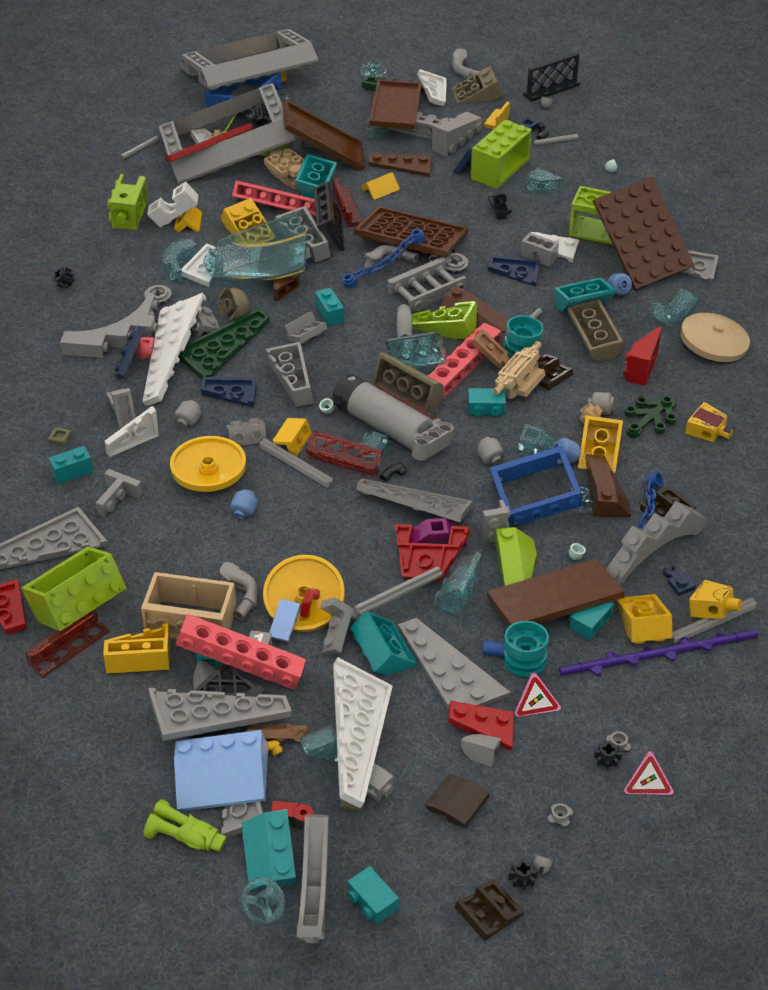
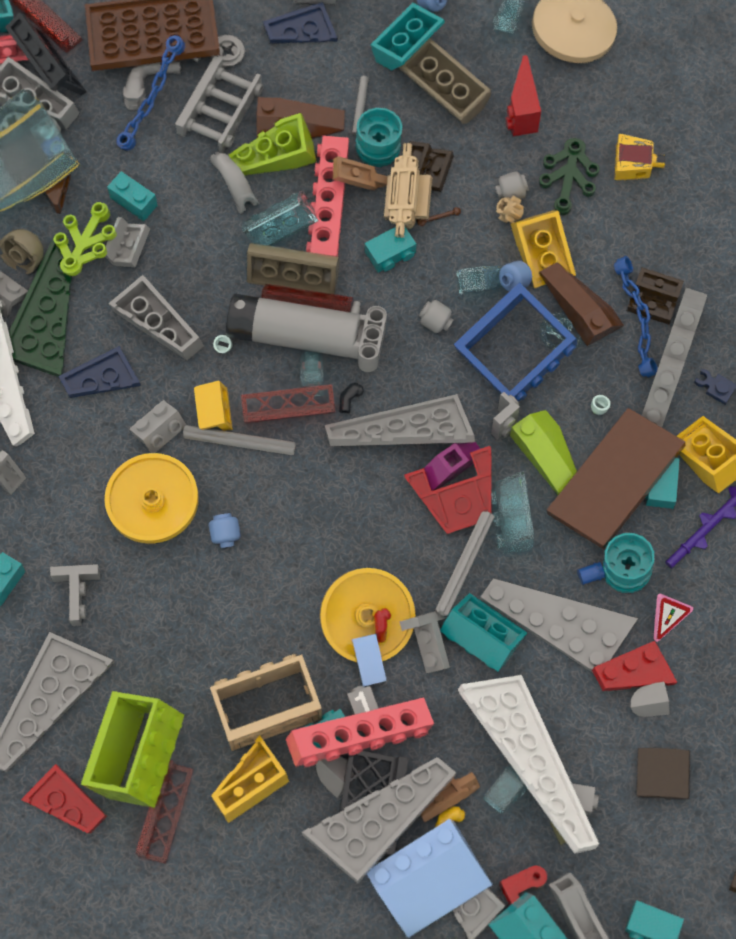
camera: 30 degrees left, 25 degrees up
(134, 433) = (40, 501): white wing -> none
(188, 413) = (78, 437): light grey head -> none
(244, 582) = (284, 630): light grey piece -> none
(260, 321) = (100, 213): none -> lime plant
(521, 399) = (456, 211): none -> reddish brown hinge

